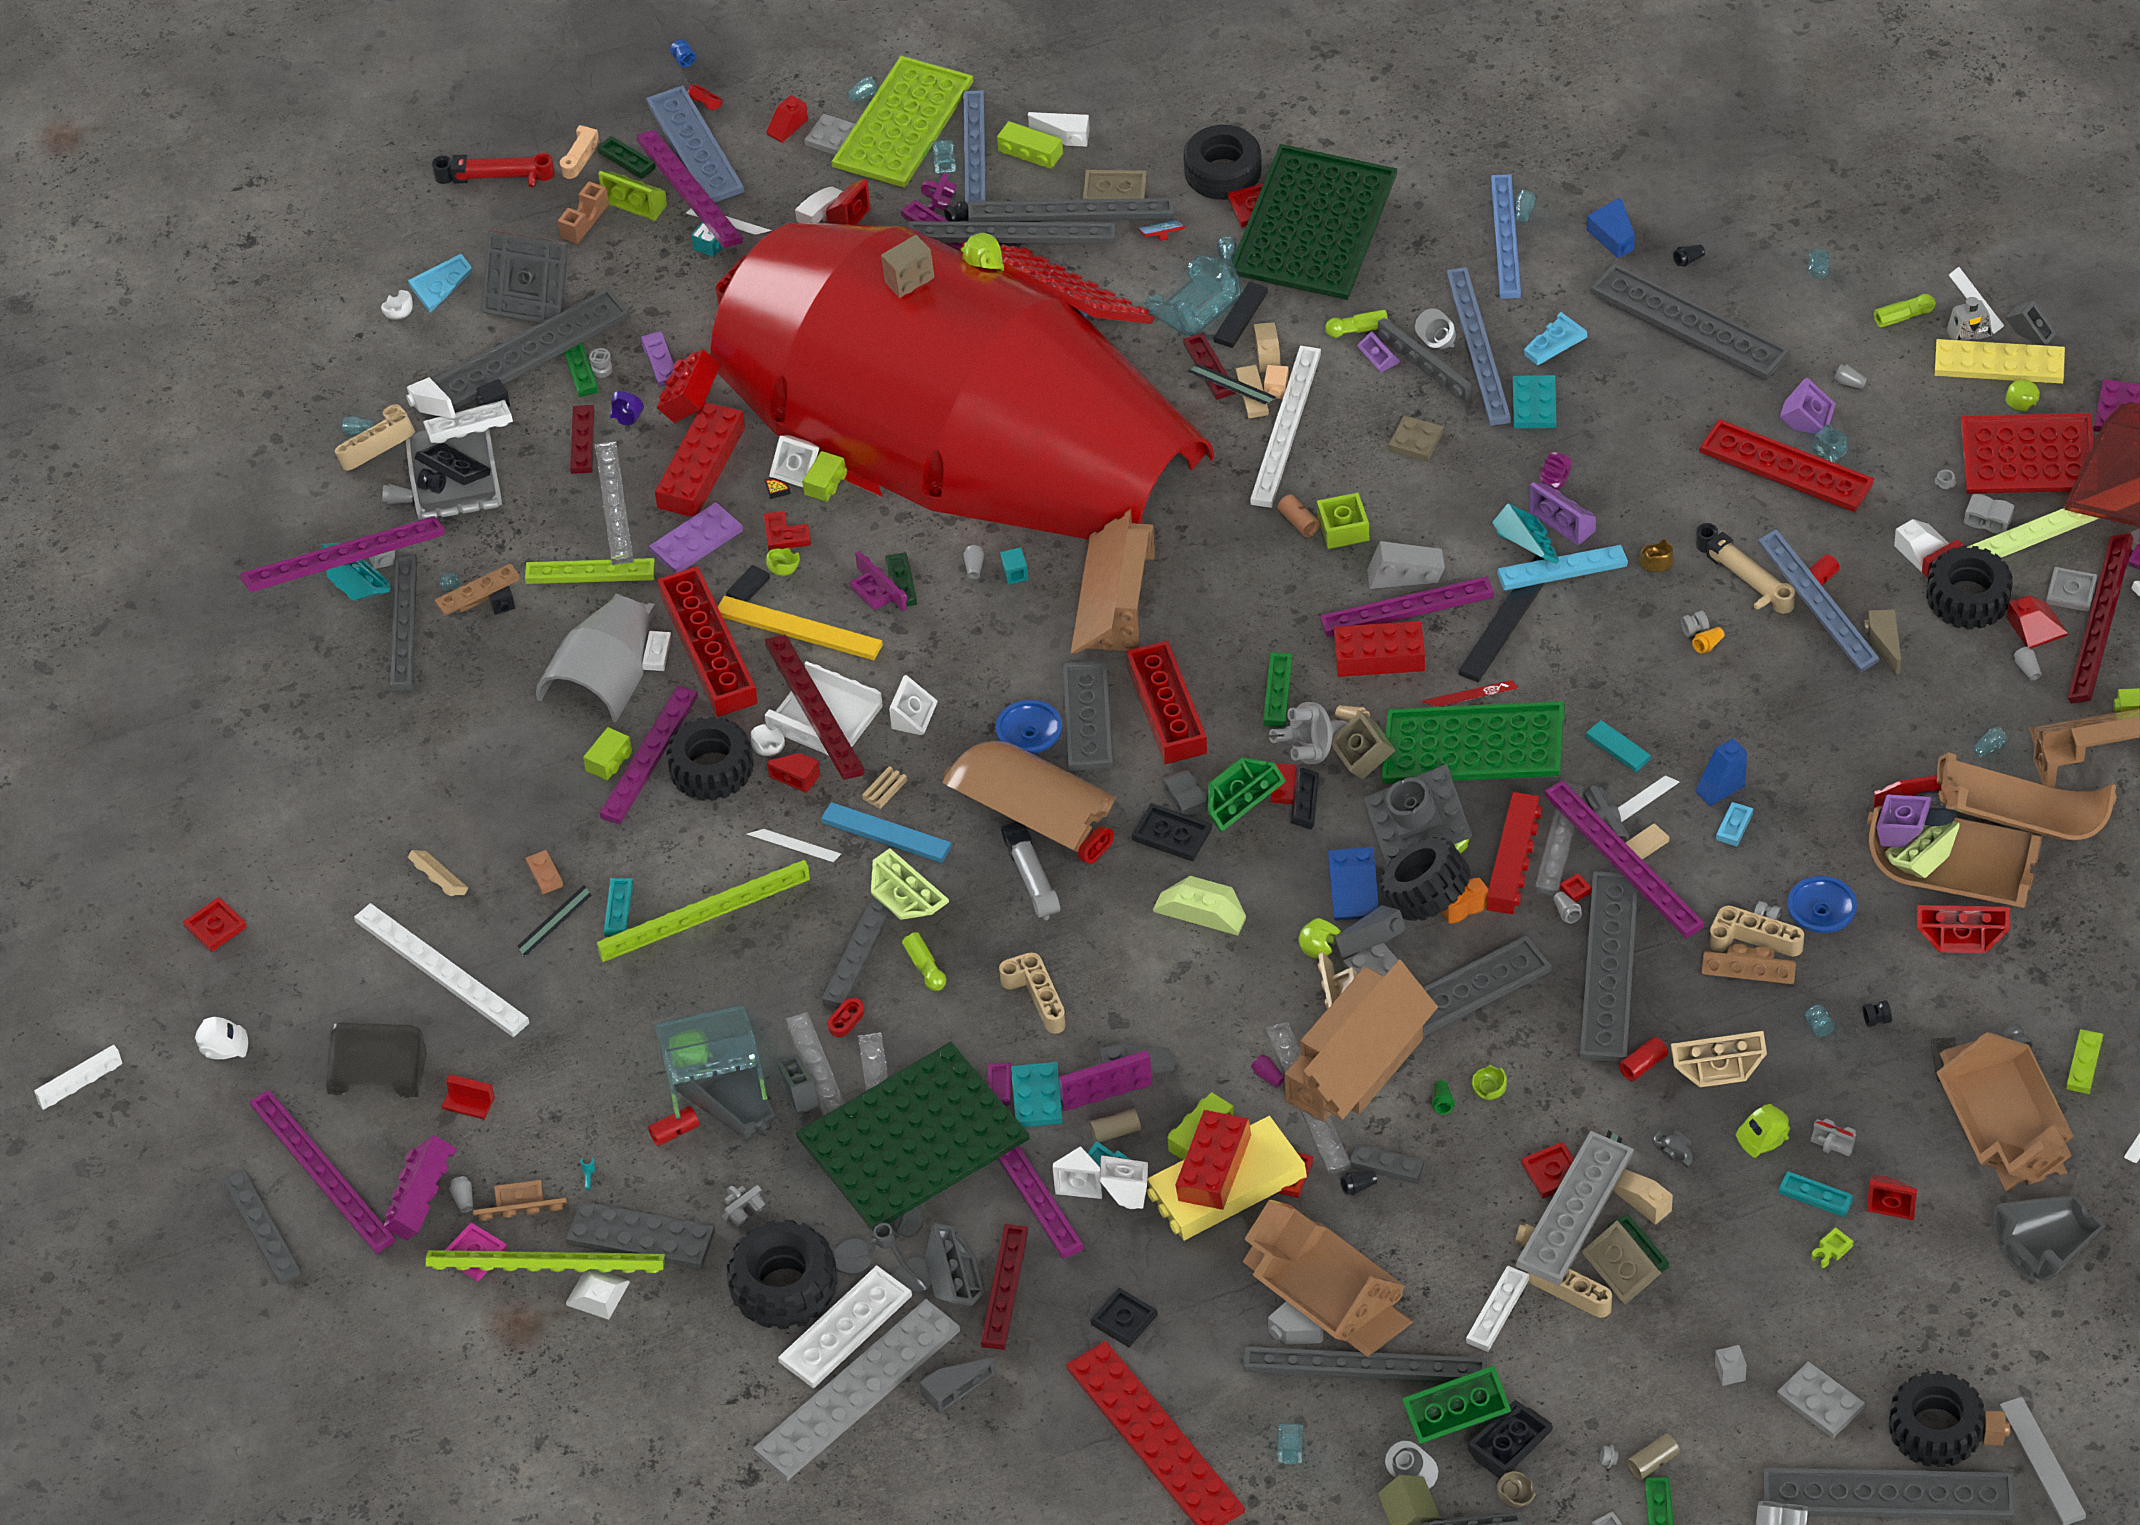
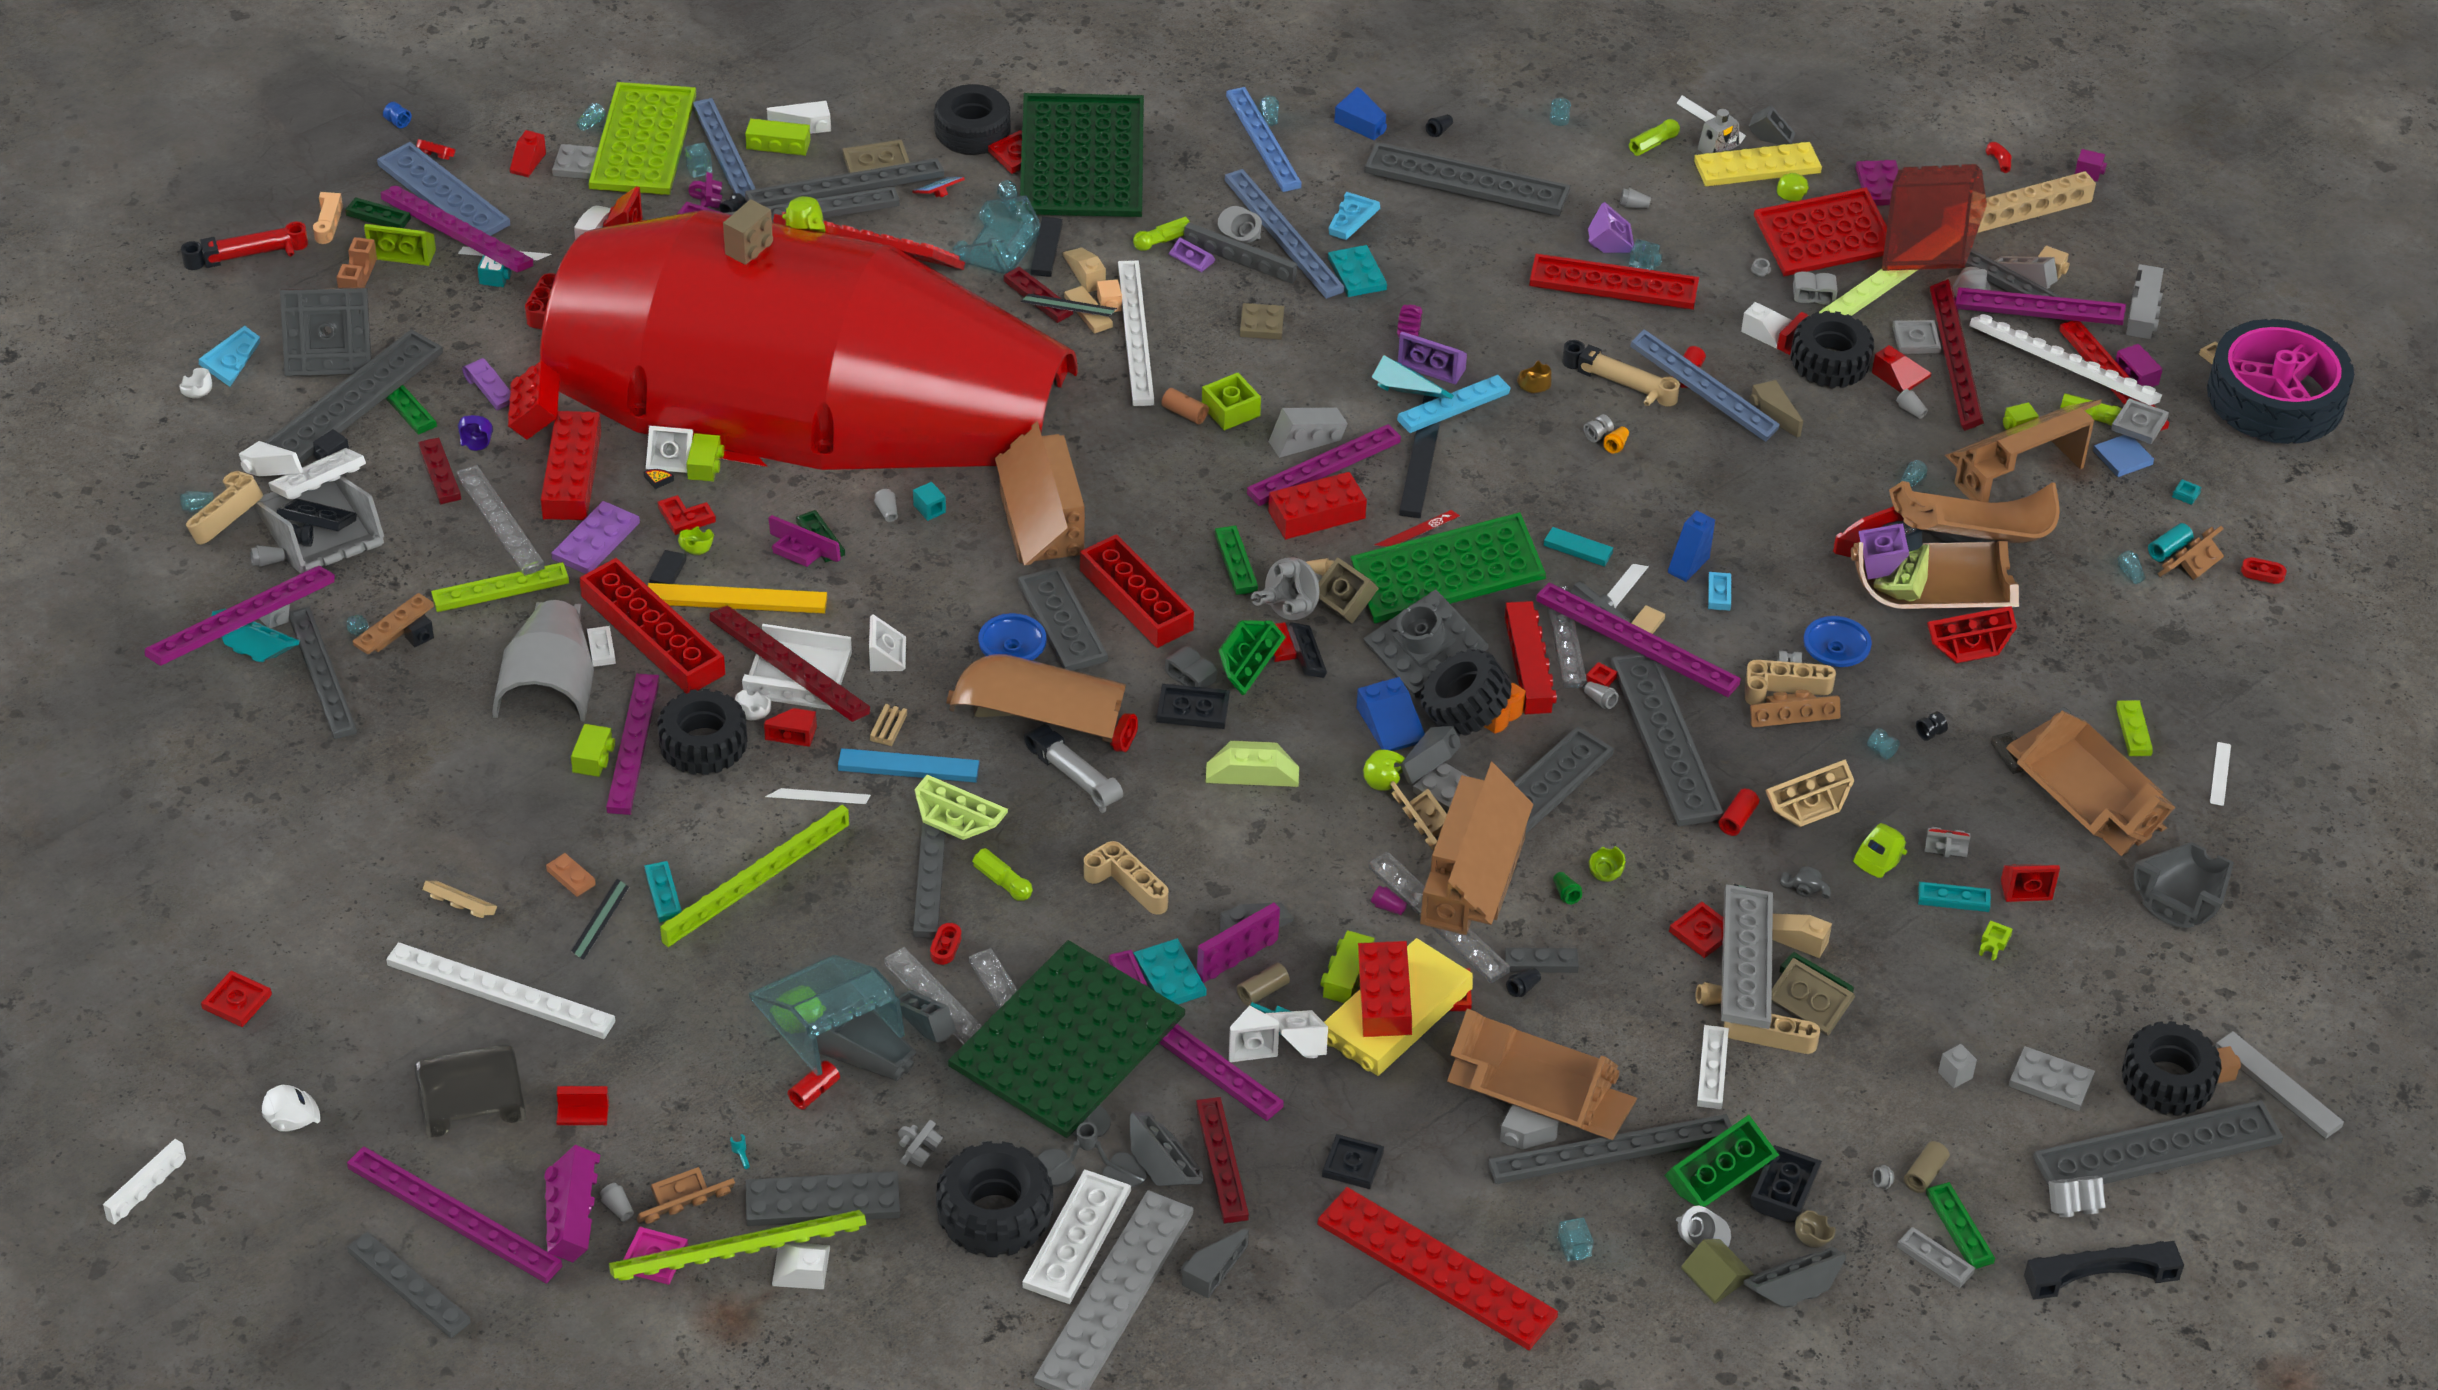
camera: 25 degrees left, 5 degrees down
(601, 362) = (431, 397): light grey wheel -> none

